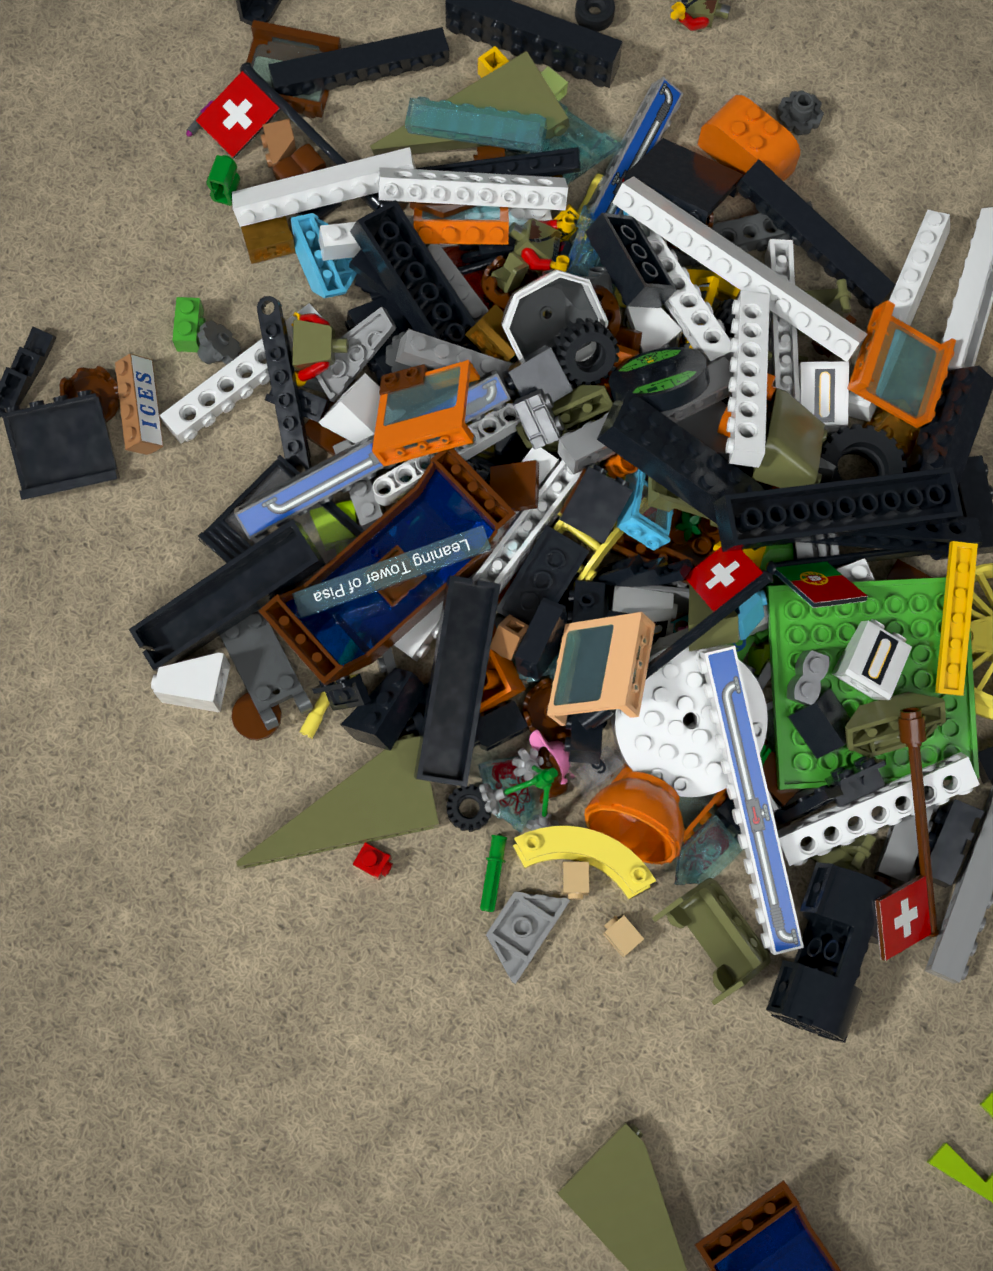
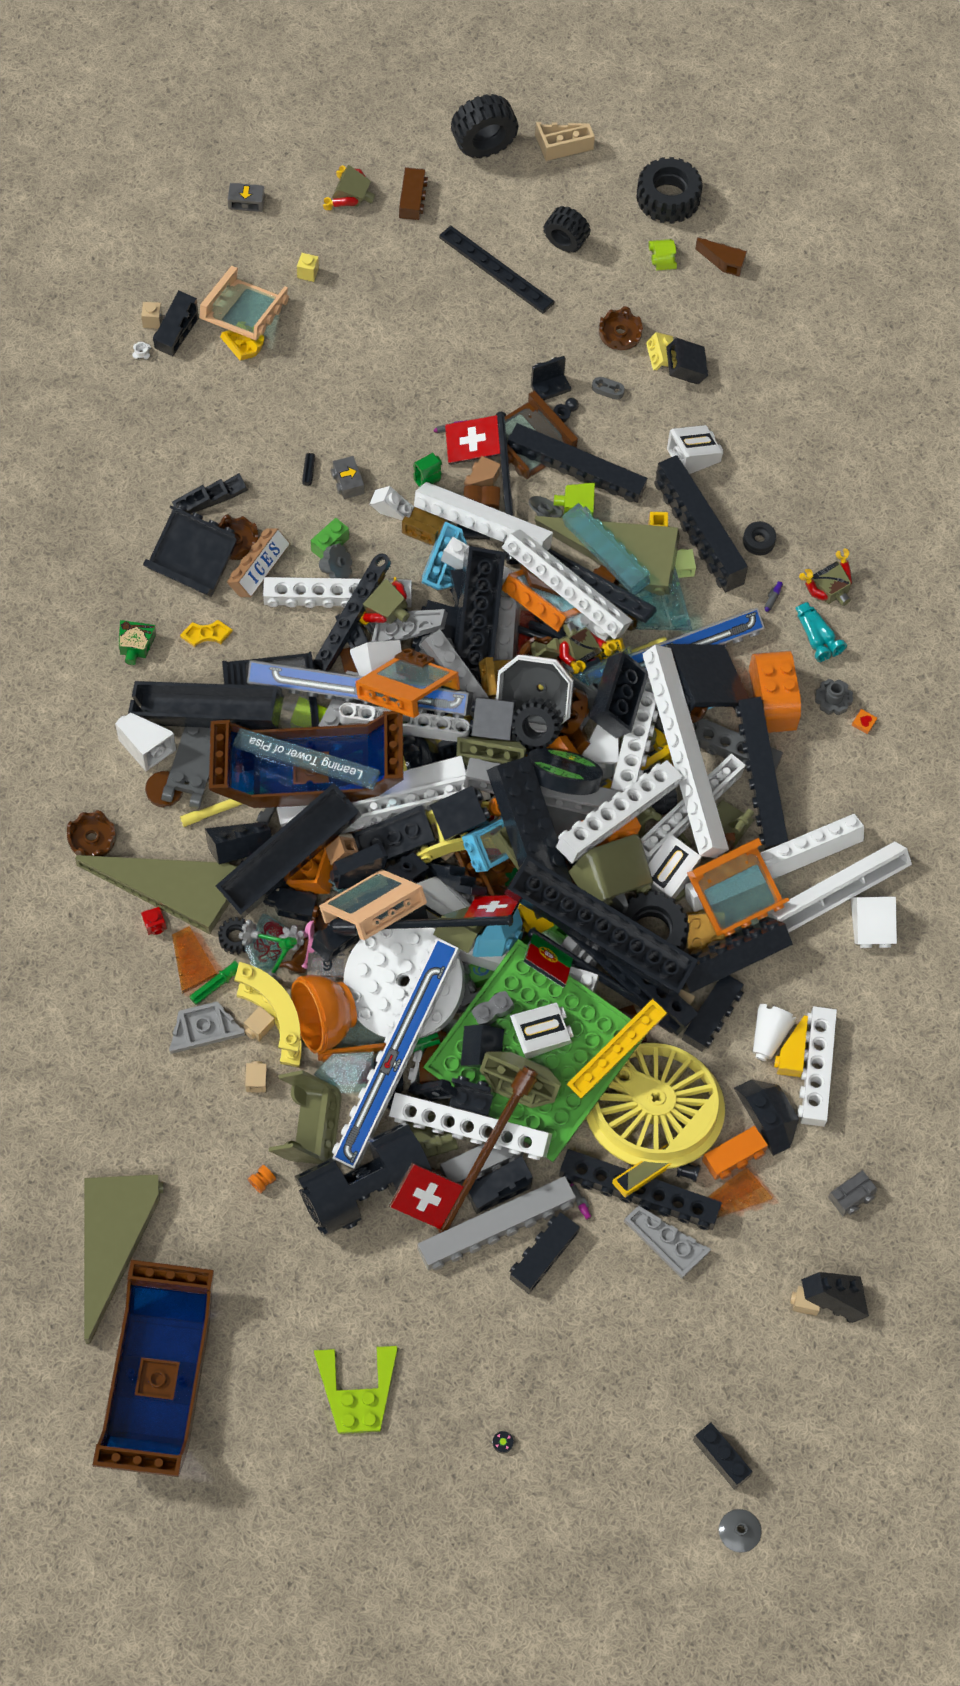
camera: 40 degrees right, 10 degrees down
(85, 584) = (135, 640): none -> torso
(98, 269) = (308, 469): none -> black axle
(141, 527) = (215, 632): none -> yellow tile
(147, 247) = (348, 477): none -> flat silver brick
(215, 241) = (391, 503): none -> white slope
(218, 812) = (91, 823): none -> reddish brown plate
(297, 18) = (565, 410): none -> black plate
(345, 692) = (223, 810): black bracket -> none
(369, 131) = (544, 507): none -> dark grey dish
(391, 100) = (576, 494): none -> lime torso
(448, 870) = (191, 960): none -> clear orange wing
(517, 484) = (425, 769): reddish brown tile -> none
(538, 418) = (471, 739): flat silver brick -> none
(655, 56) = (773, 594): none -> dark grey piece
(723, 1040) = (261, 1179): none -> orange wheel
(731, 61) = (819, 633): none -> teal piece
(846, 115) = (864, 721): none -> orange tile

